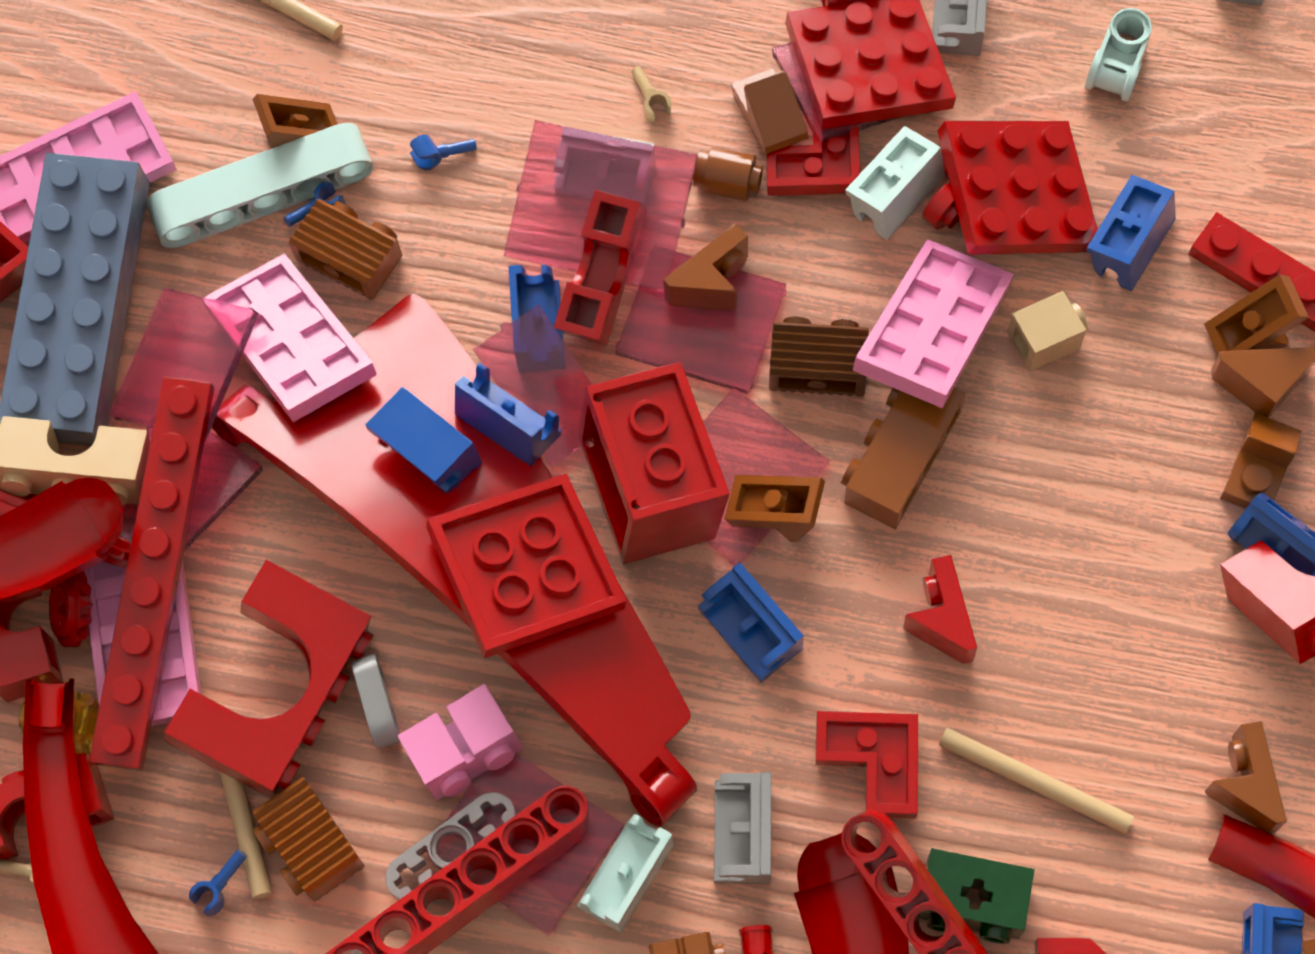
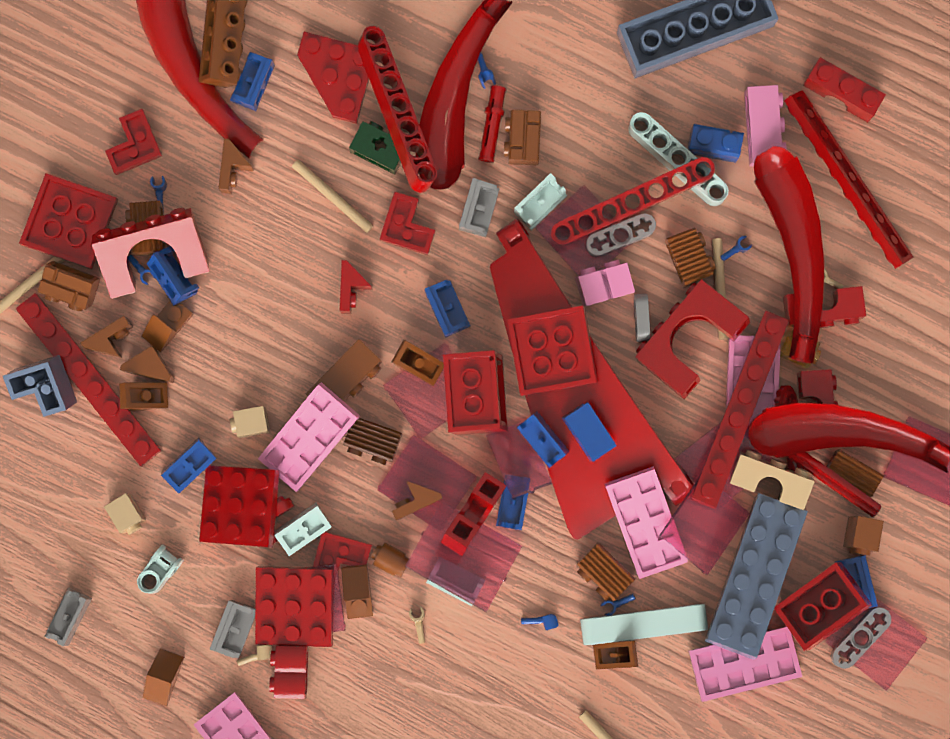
camera: 170 degrees left, 15 degrees up
(1211, 128) = (125, 514): none -> tan brick

